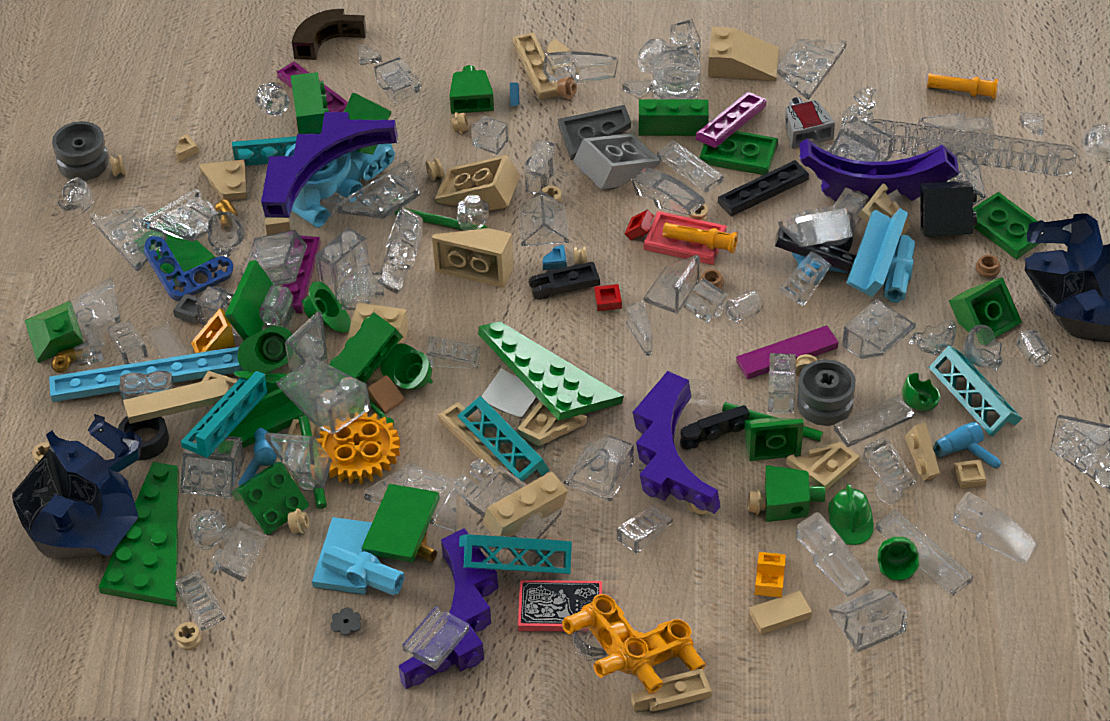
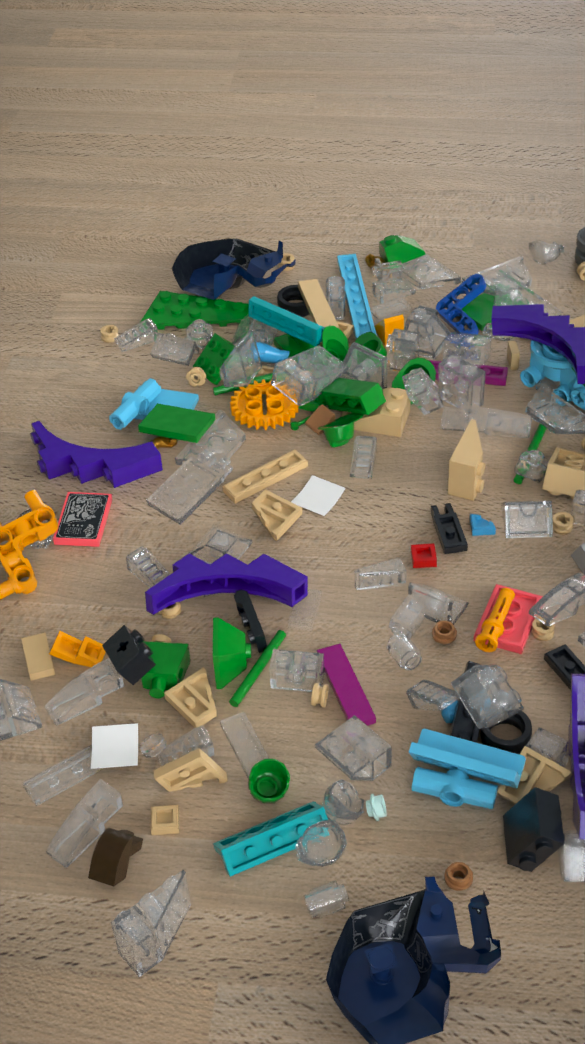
camera: 95 degrees right, 5 degrees down
(247, 300) = (431, 334): green tile -> none
(346, 621) = (100, 405): dark grey plant -> none
(435, 637) = (51, 433): clear plate -> none
(509, 435) = (243, 490): teal fence -> none
(516, 544) = (133, 479): teal fence -> none
(538, 497) = (169, 481): tan arch -> none
(554, 381) = (326, 514): wing -> none
(580, 255) = (476, 531): tan bush -> none
(639, 225) = (519, 581): red plate -> none
(810, 501) = (129, 654): none -> black brick
(826, 392) = (278, 702): dark grey wheel -> none
(851, 516) = (135, 710): green piece -> none
(898, 518) = (114, 746): none -> white sticker
(898, 558) = (67, 740): green hair -> none
(928, 317) = (376, 807): none -> light aqua plate
(964, 438) = (206, 818): dark azure piece -> none
(986, 305) = (380, 856): green slope -> none
(1004, 224) = (532, 909): green tile -> none
(1027, 491) = (112, 856): none -> dark brown brick

